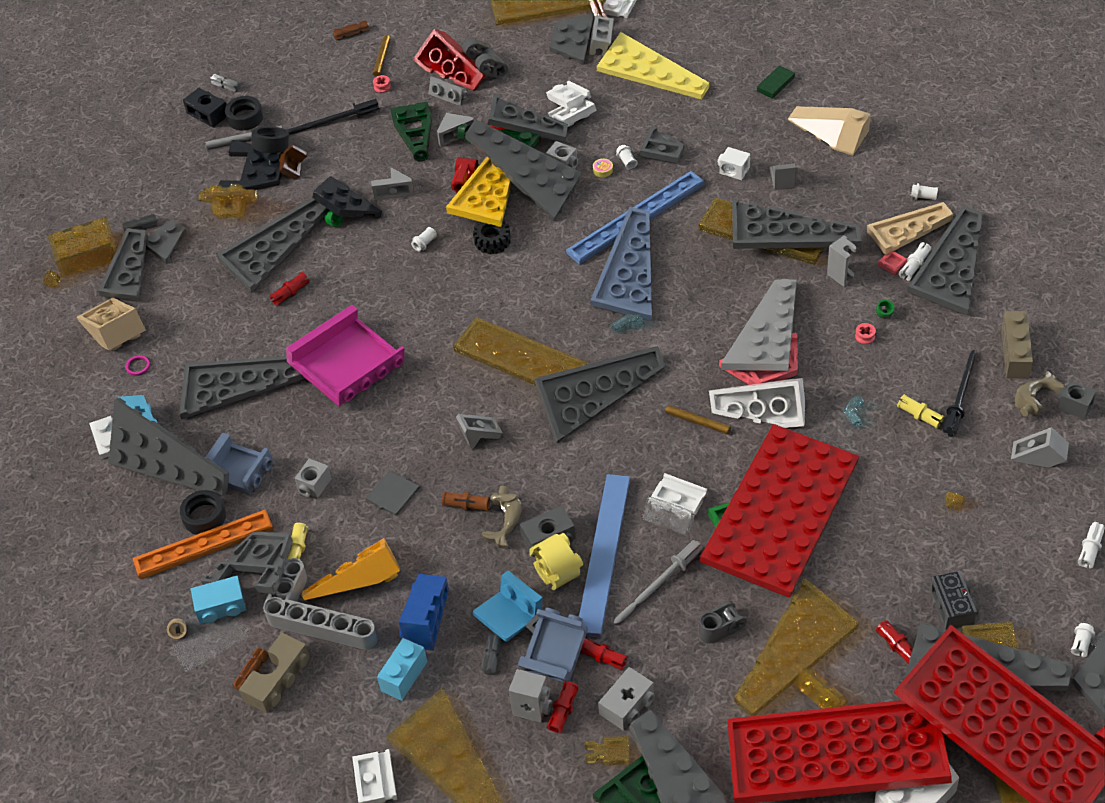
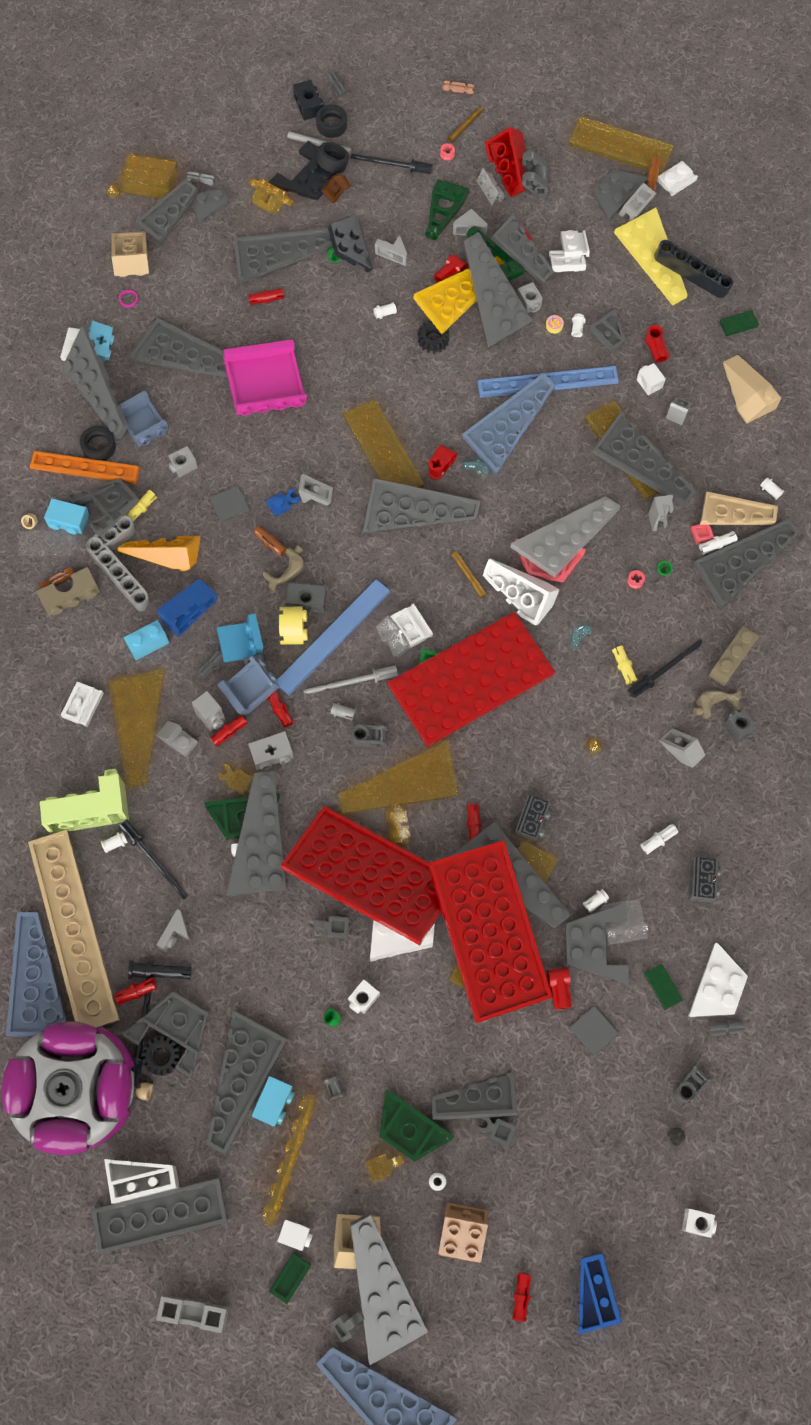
camera: 25 degrees right, 20 degrees up
(449, 462) = (281, 503): none -> blue plate
(504, 749) = (176, 738): none -> light grey slope
(588, 336) = (440, 462): none -> red piece
(672, 616) = (342, 711): none -> light grey pin
(698, 58) = (693, 269): none -> black beam
(710, 131) = (657, 344): none -> red piece

